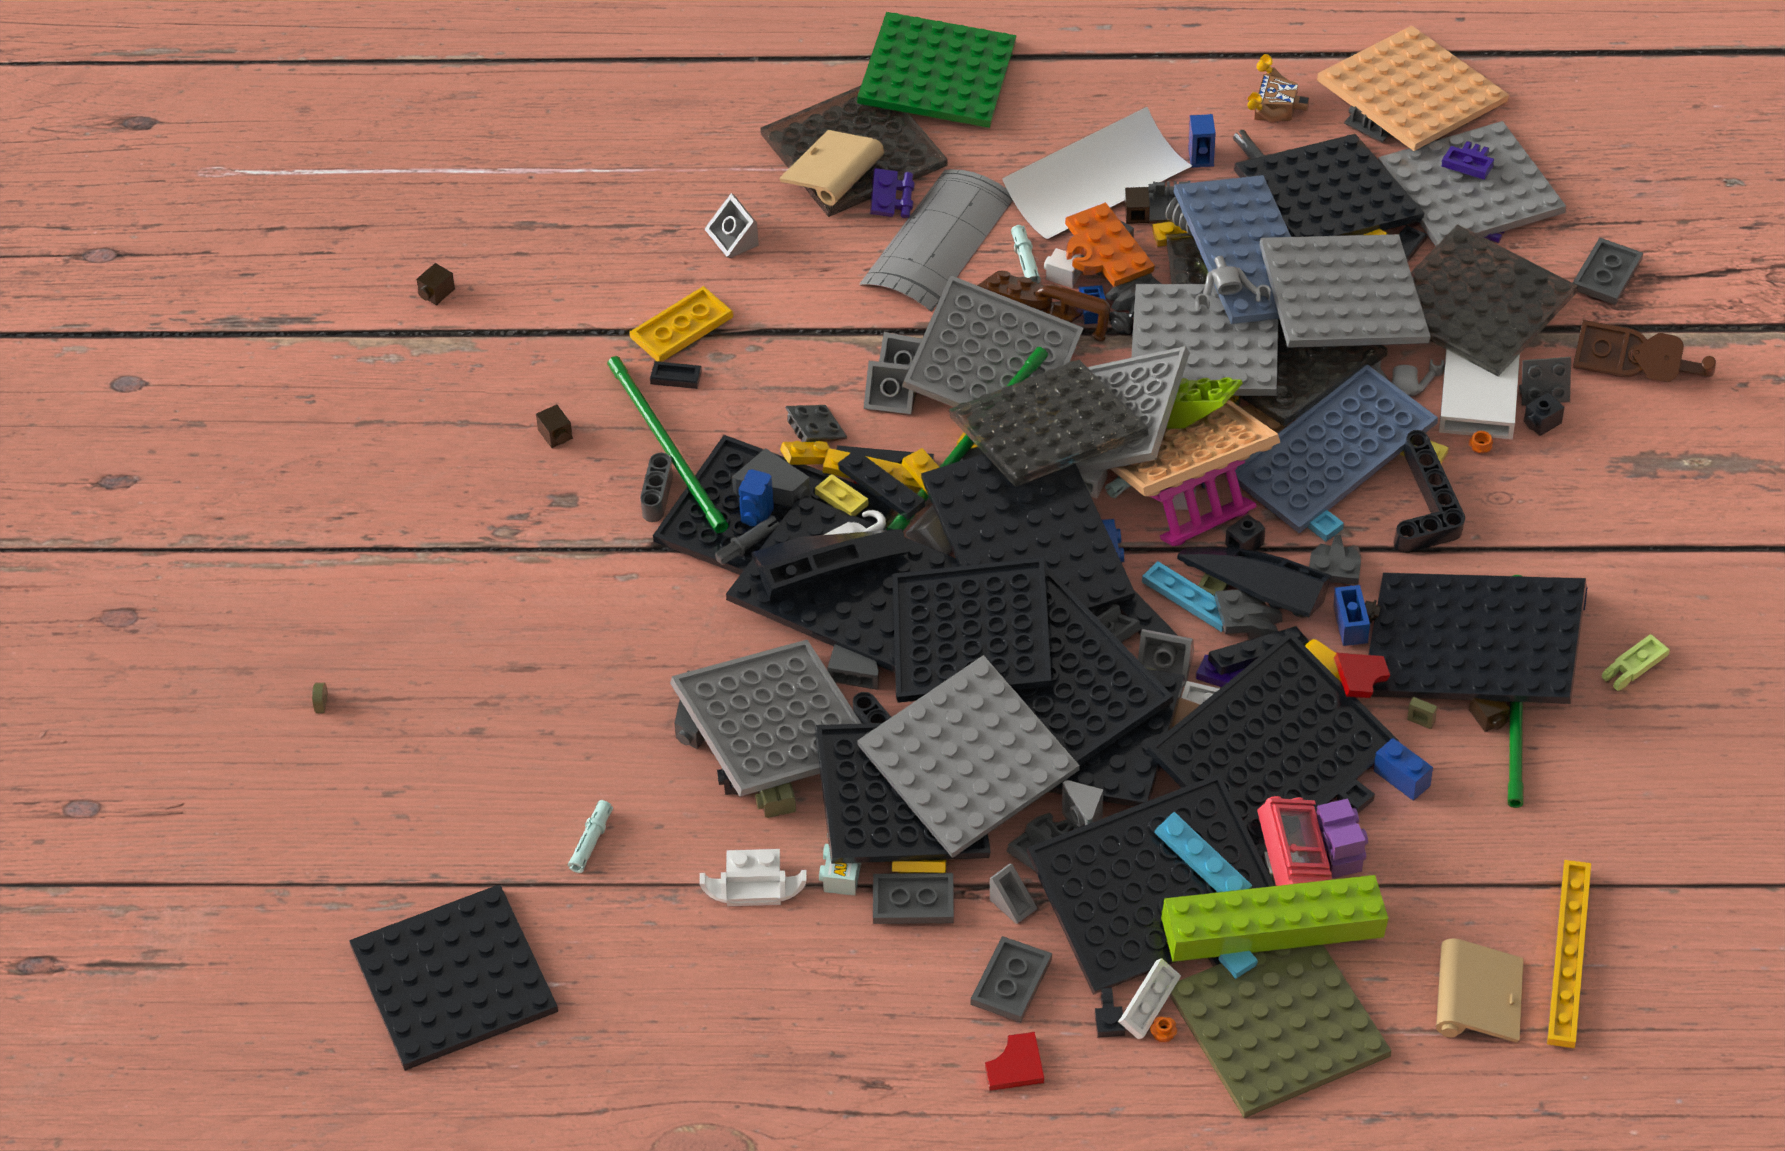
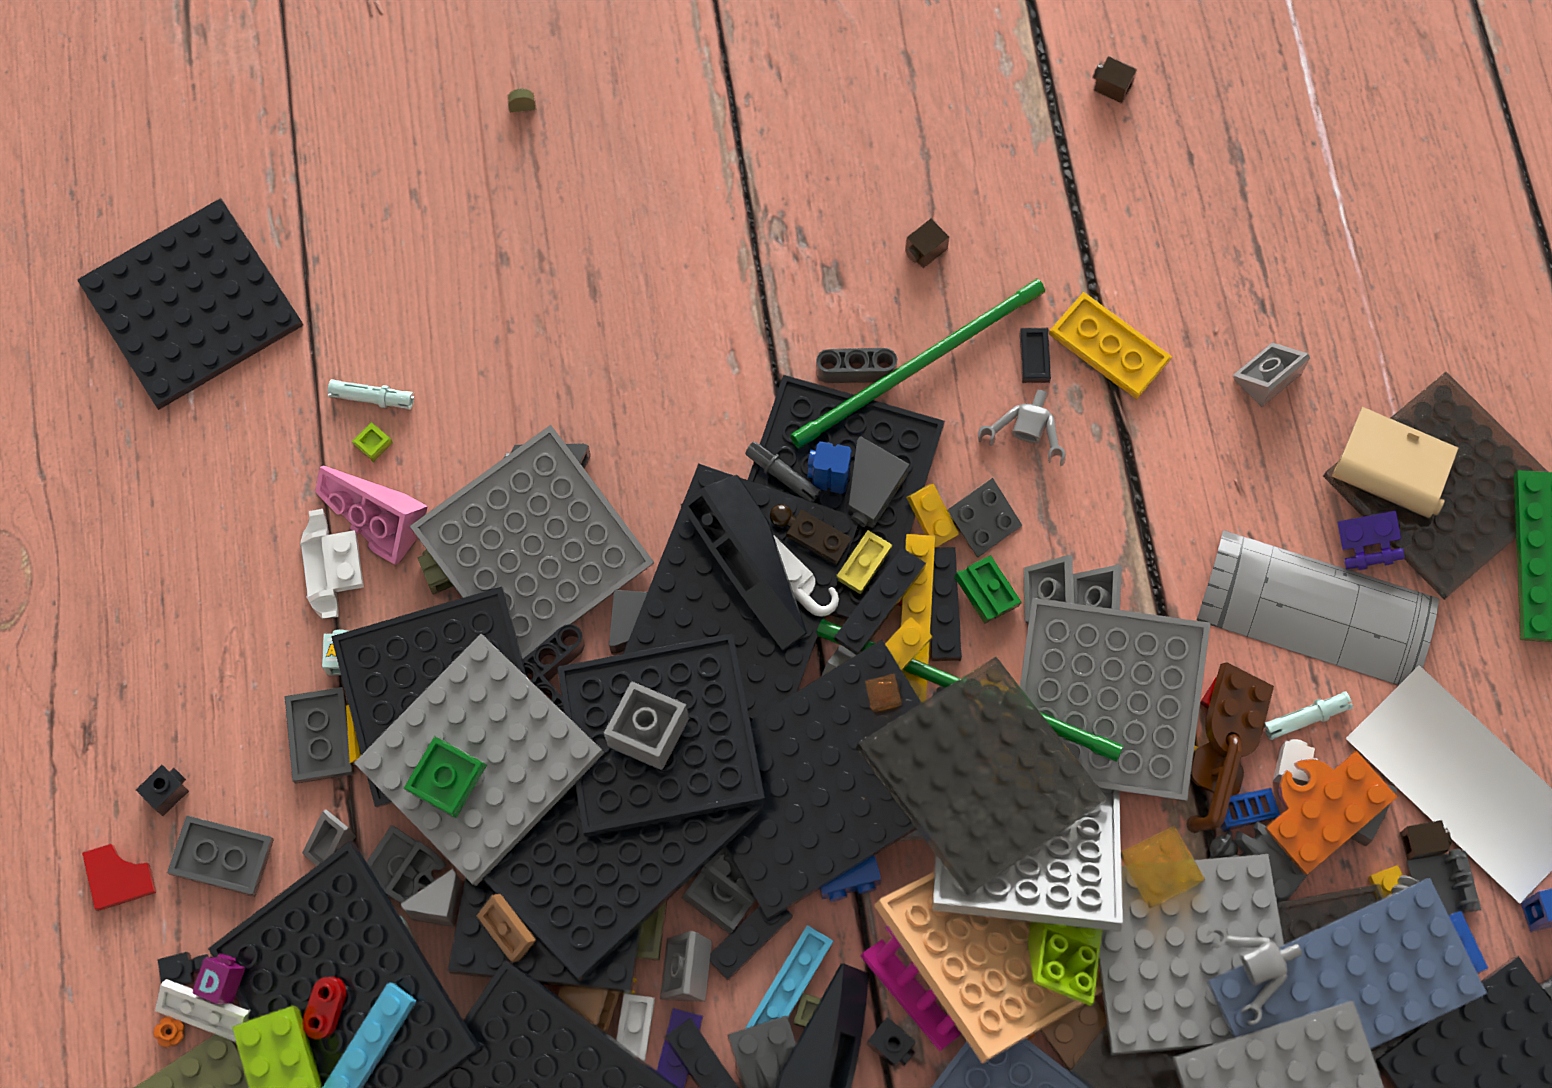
camera: 80 degrees right, 20 degrees up
(636, 842) = (372, 442): none -> lime tile
(717, 828) = (373, 510): none -> bright pink wedge
(741, 384) = (1029, 425): none -> light grey piece
(812, 518) = (811, 532): none -> dark brown plate
(879, 428) = (987, 589): none -> green plate
(942, 1017) = (163, 789): none -> black brick
(969, 473) = (883, 692): none -> clear orange plate
(969, 620) = (646, 725): none -> light grey brick
(985, 768) = (445, 777): none -> green plate
(1120, 747) = (506, 928): none -> medium nougat plate
(1126, 974) = (218, 979): none -> magenta brick
(1137, 337) = (1162, 867): none -> clear yellow plate
(1165, 889) = (323, 1008): none -> red plate

